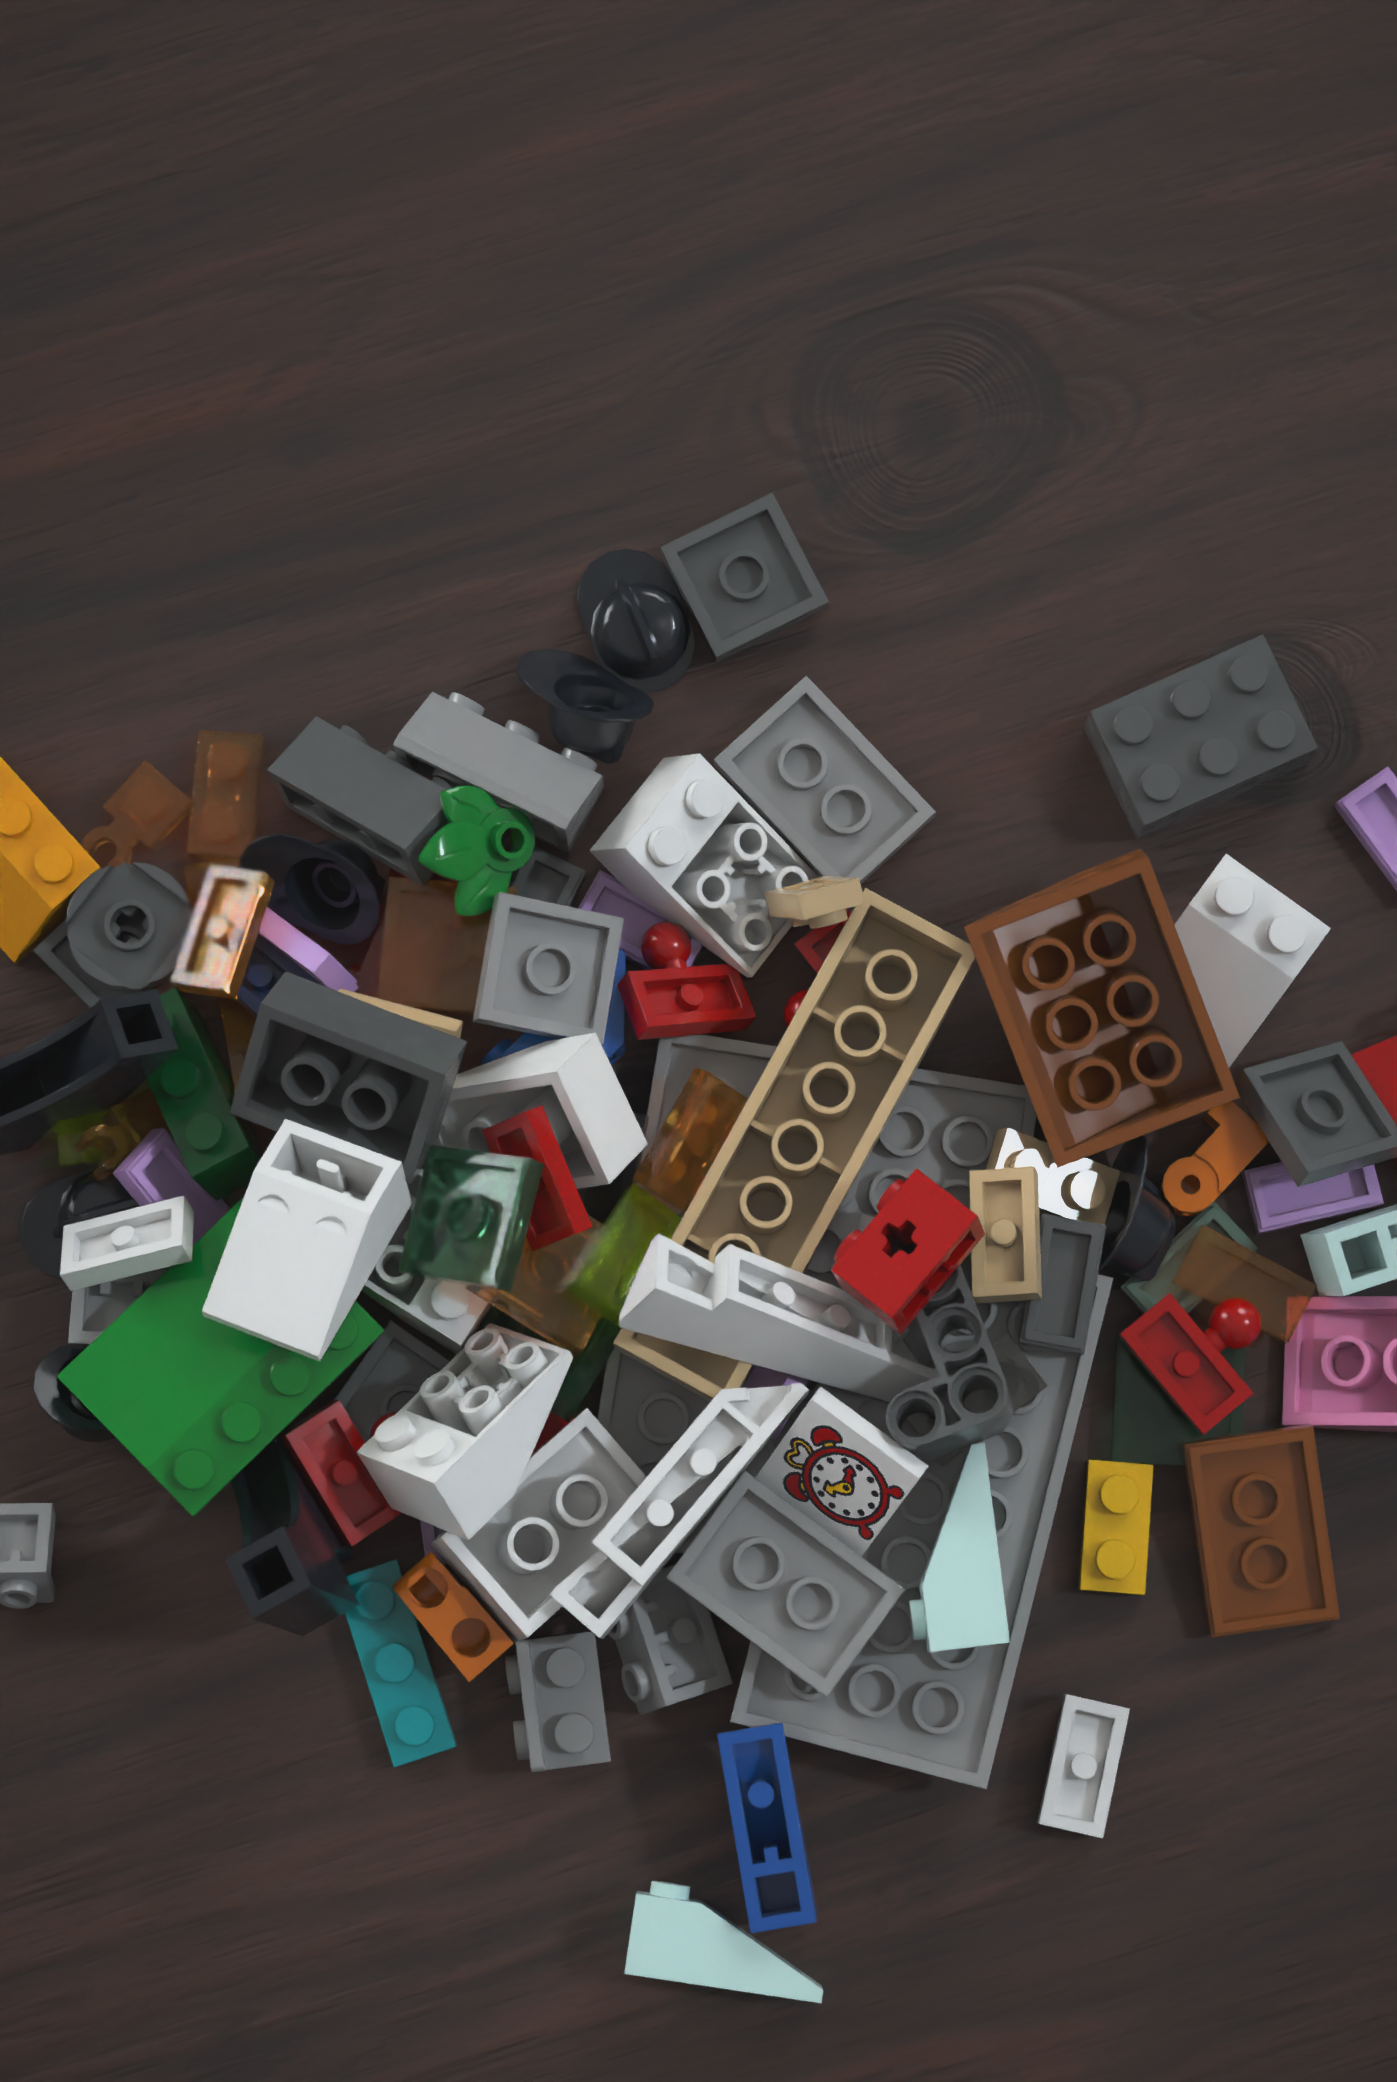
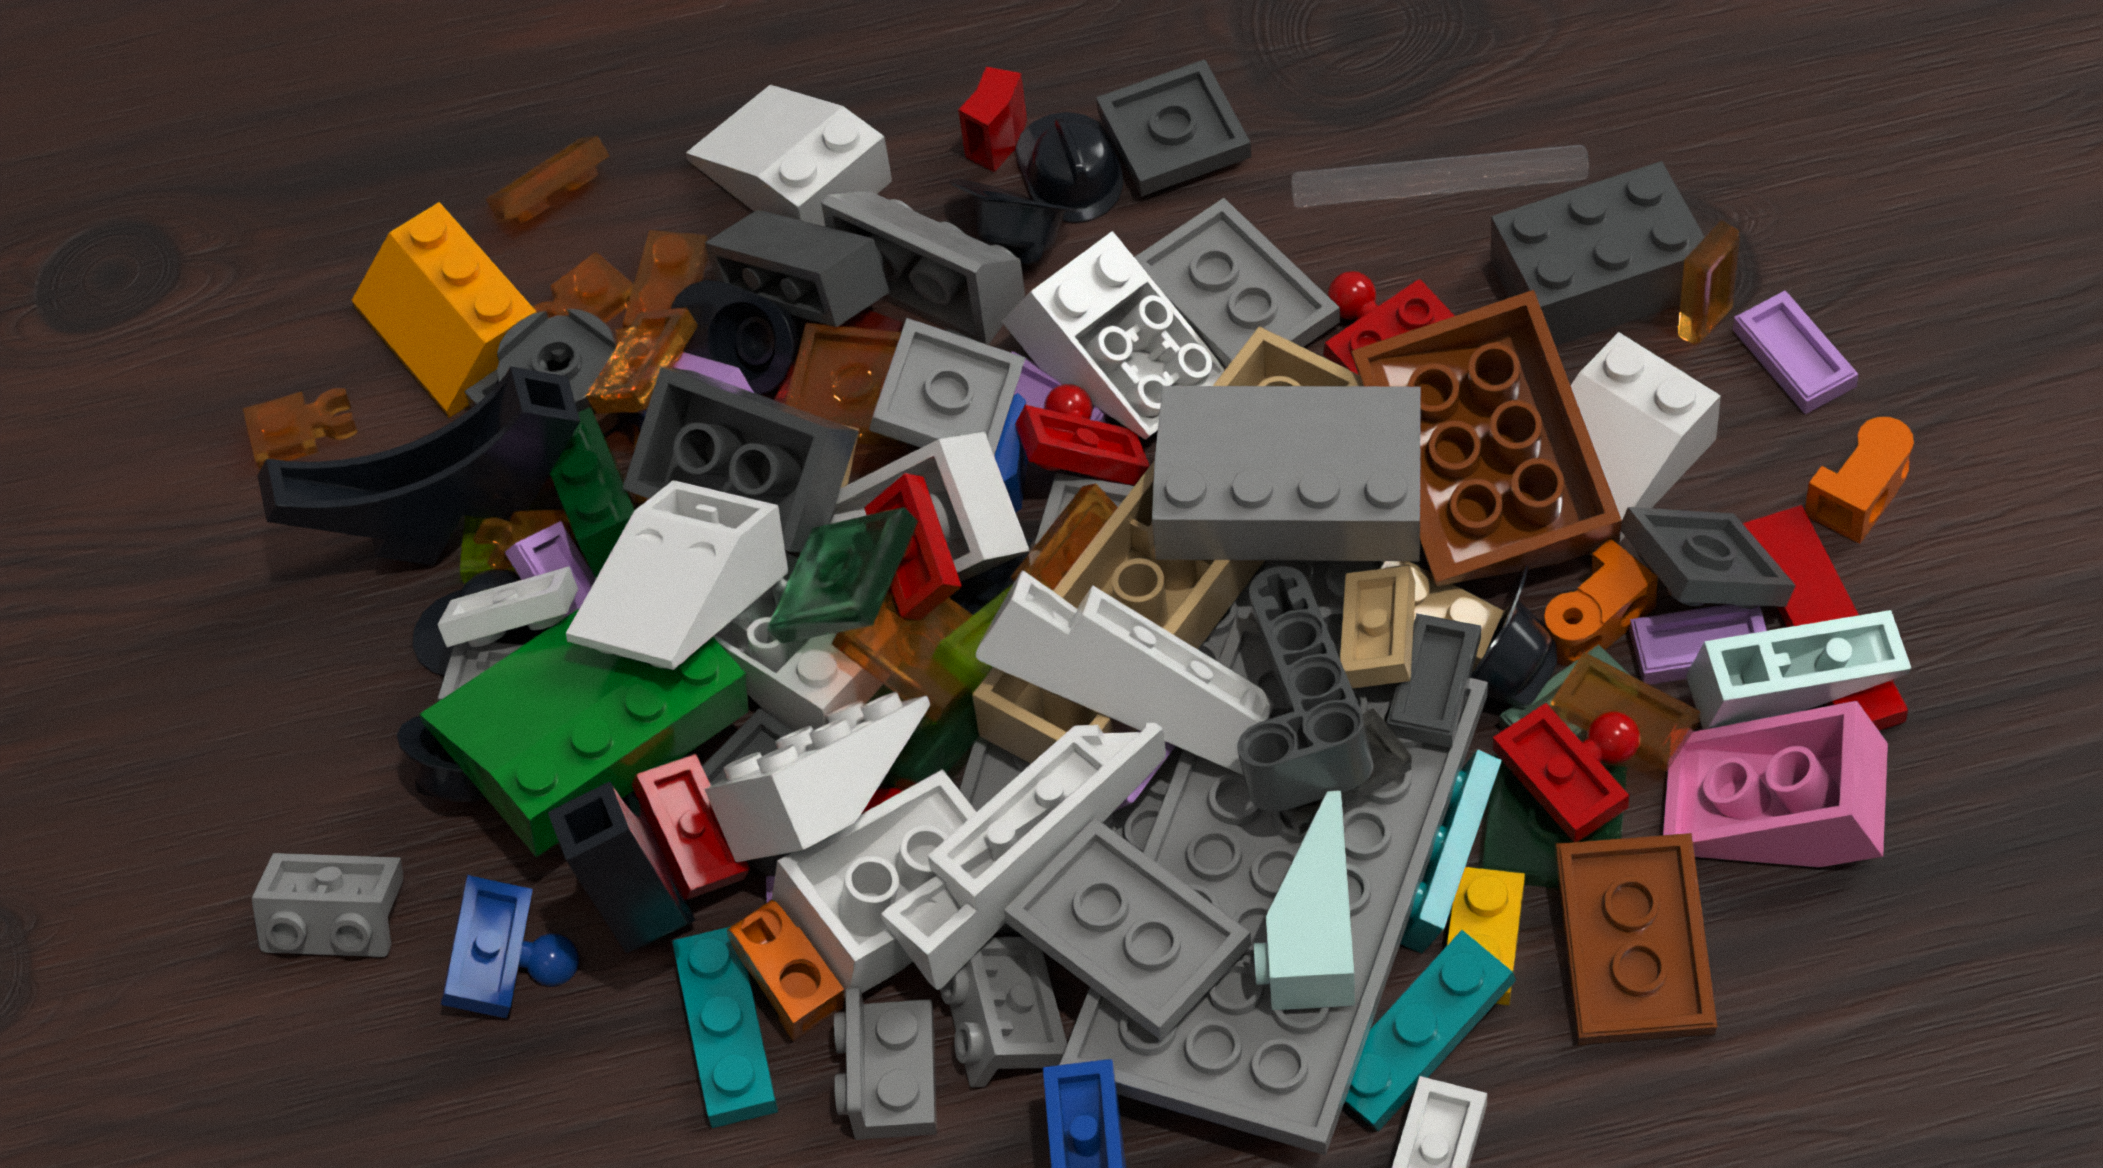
camera: 10 degrees right, 25 degrees down
(80, 668) = (569, 167): none -> clear orange plate
(158, 1598) = (491, 948): none -> blue plate
(338, 630) = (791, 153): none -> white slope
(472, 849) = (885, 285): green plate -> none
(554, 579) = (993, 118): none -> red piece
(816, 901) = (1209, 342): tan plate -> none
(841, 1471) = (1193, 812): white tile -> none
(903, 1283) = (1271, 599): red brick -> none
(911, 1074) = (1287, 473): none -> light grey slope
(985, 832) = (1404, 312): none -> red plate
(1027, 628) = (1440, 175): none -> clear axle
(1071, 1638) = (1425, 1027): none -> teal plate
(1088, 1449) = (1451, 851): none -> plate
(1315, 782) = (1708, 283): none -> clear orange tile

